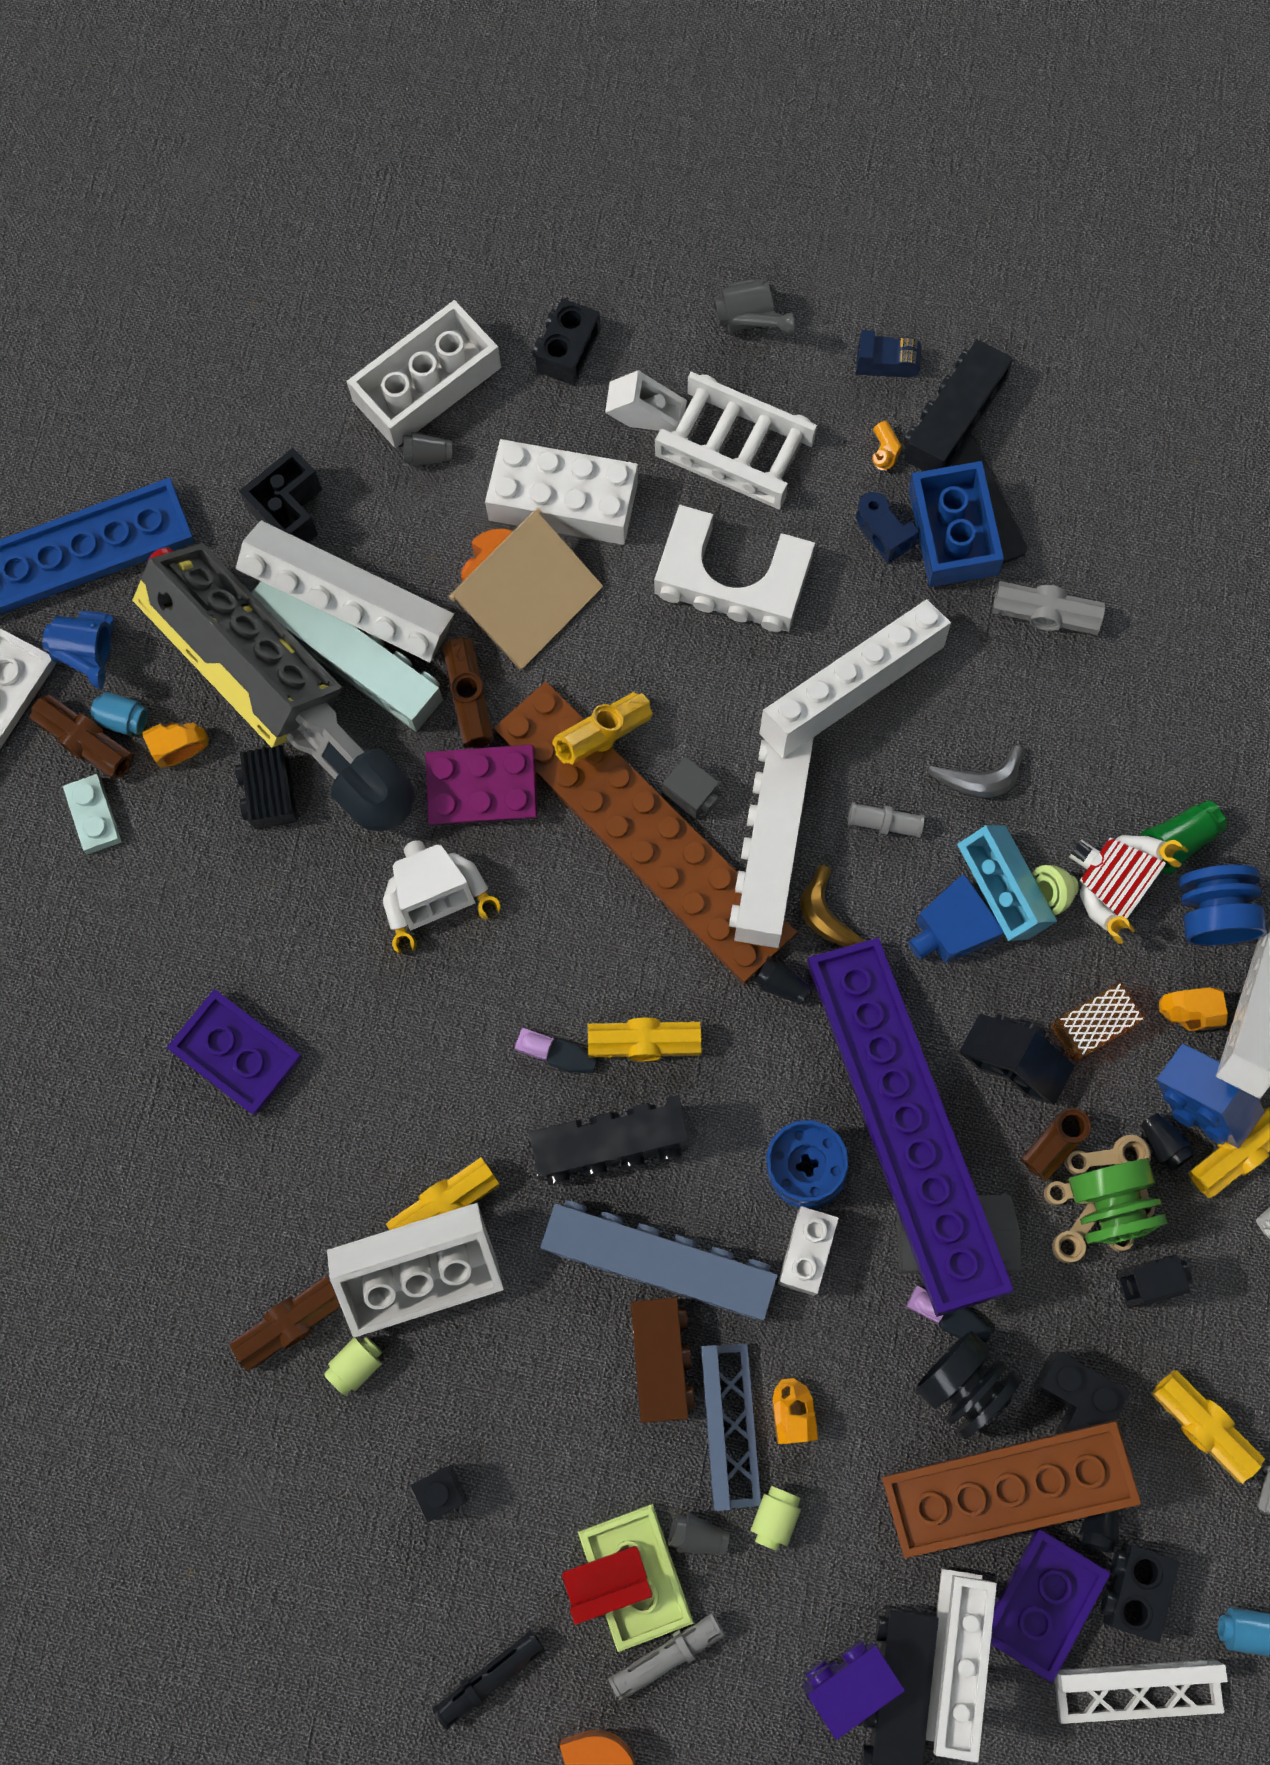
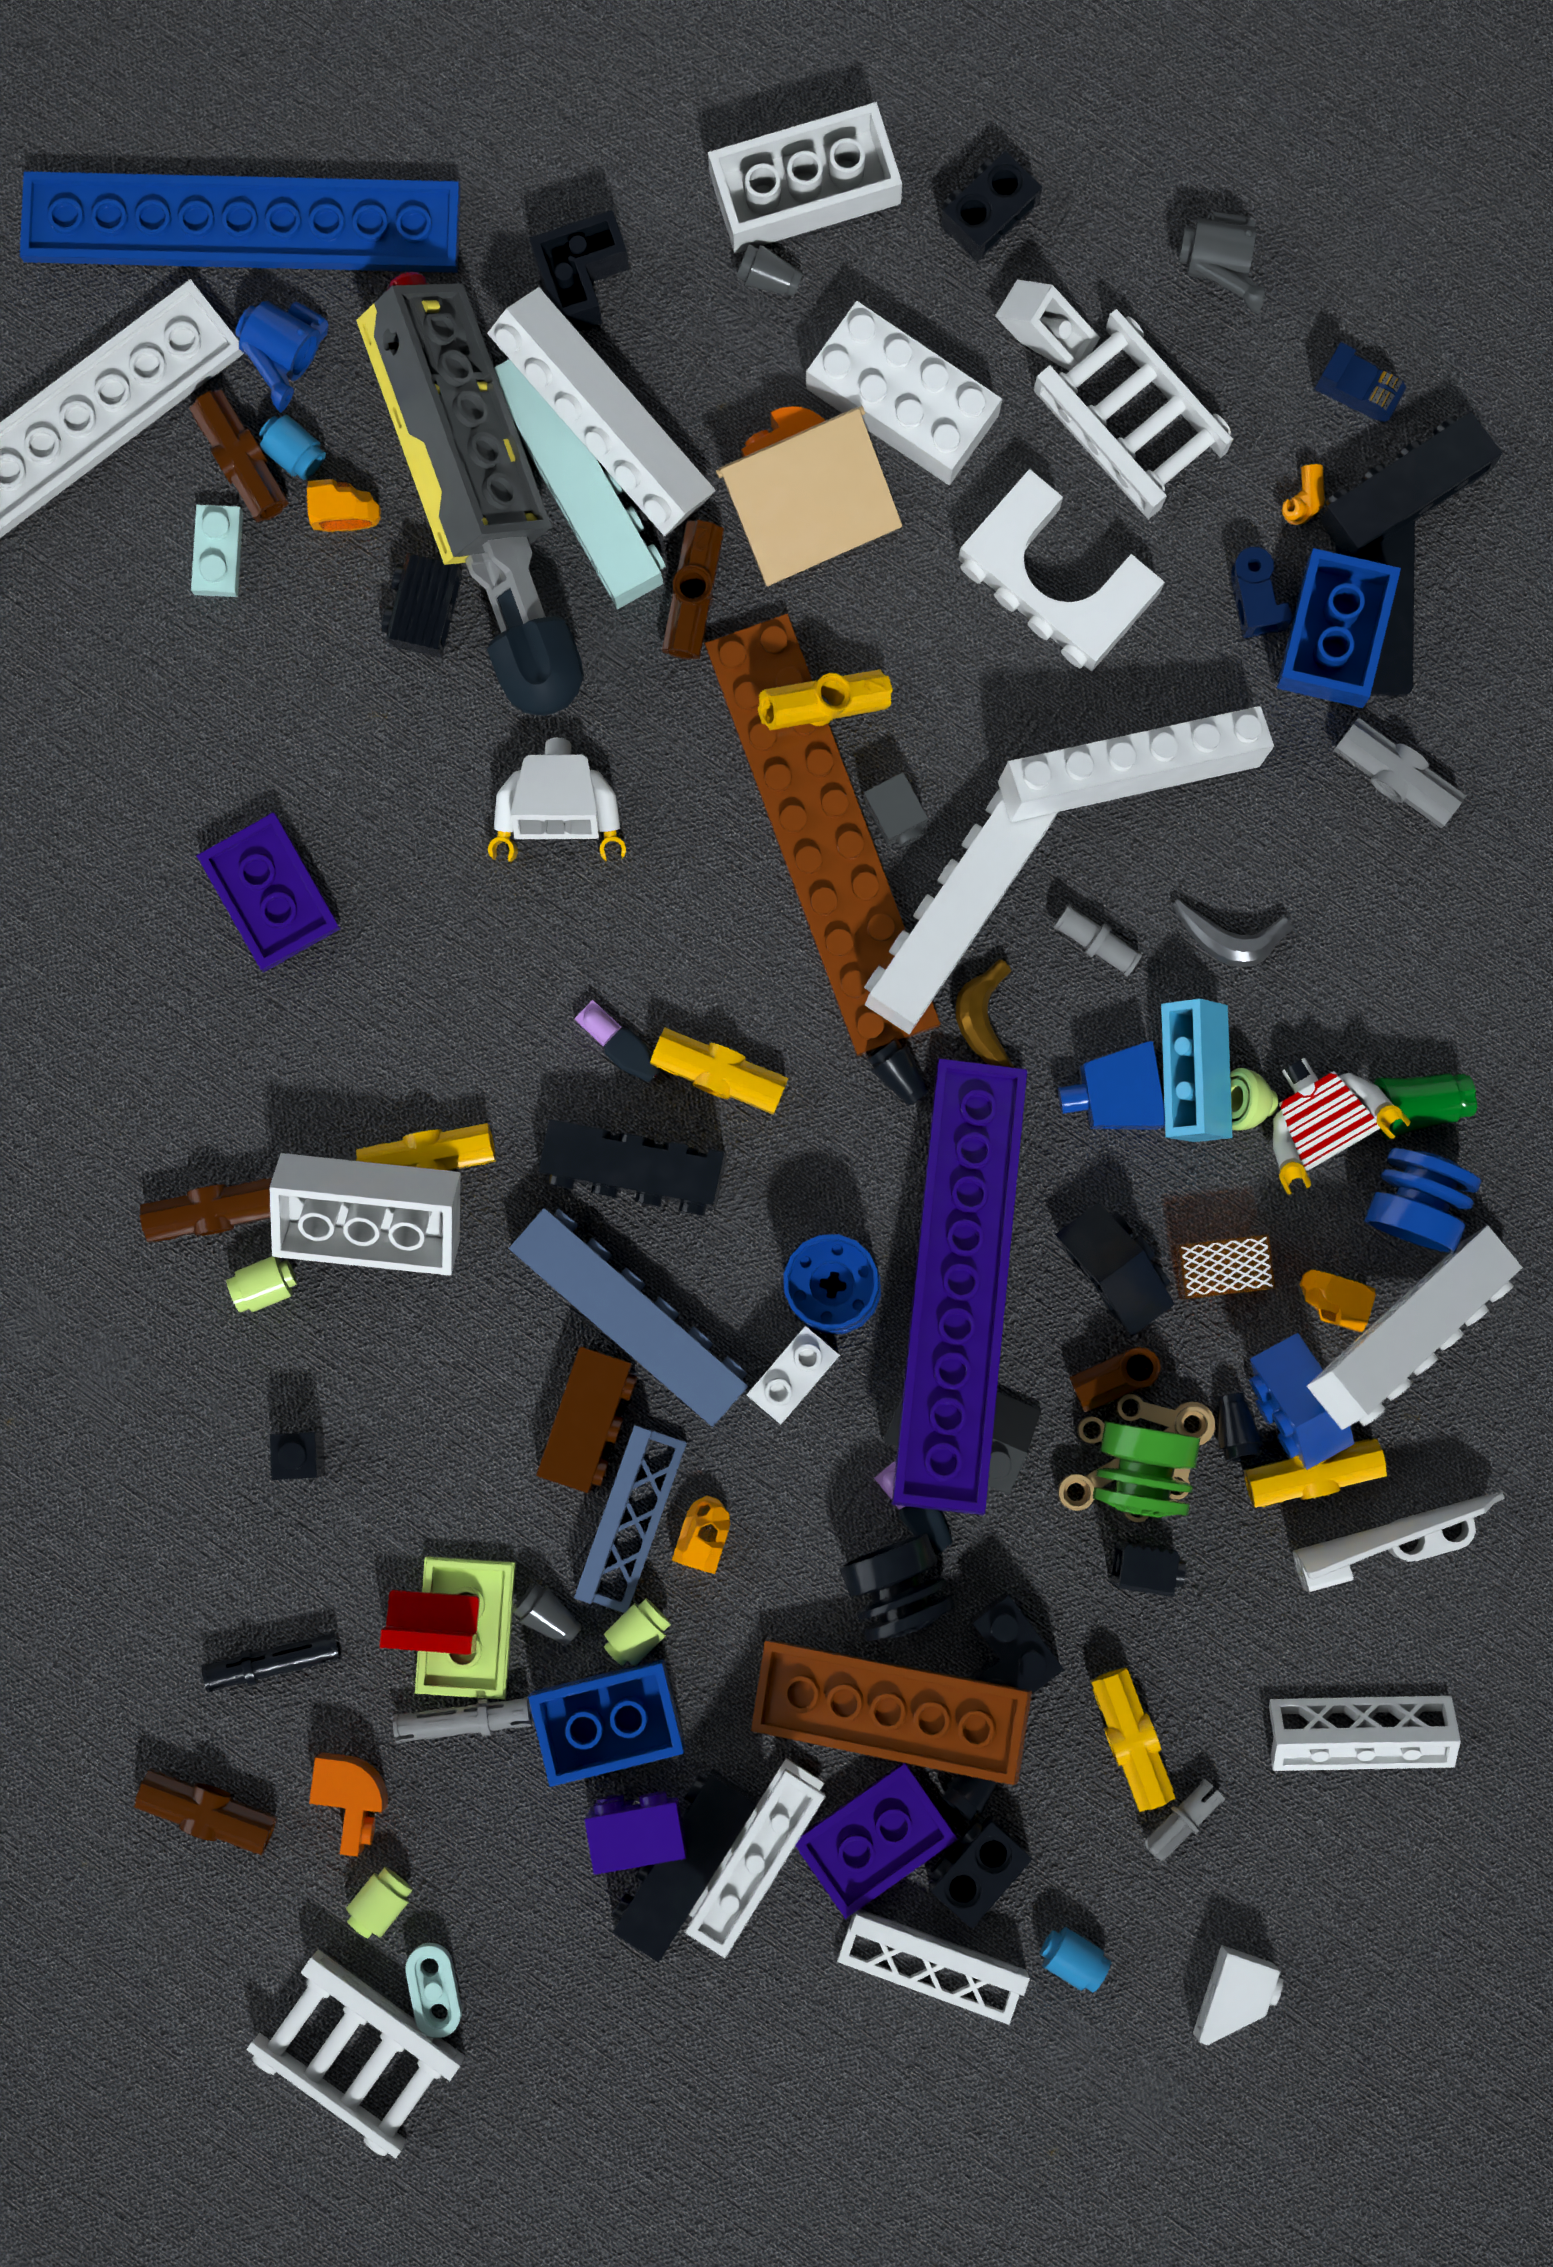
camera: 25 degrees right, 10 degrees up
(481, 785) = (663, 705): magenta plate -> none
(786, 1604) = (607, 1722): none -> blue brick

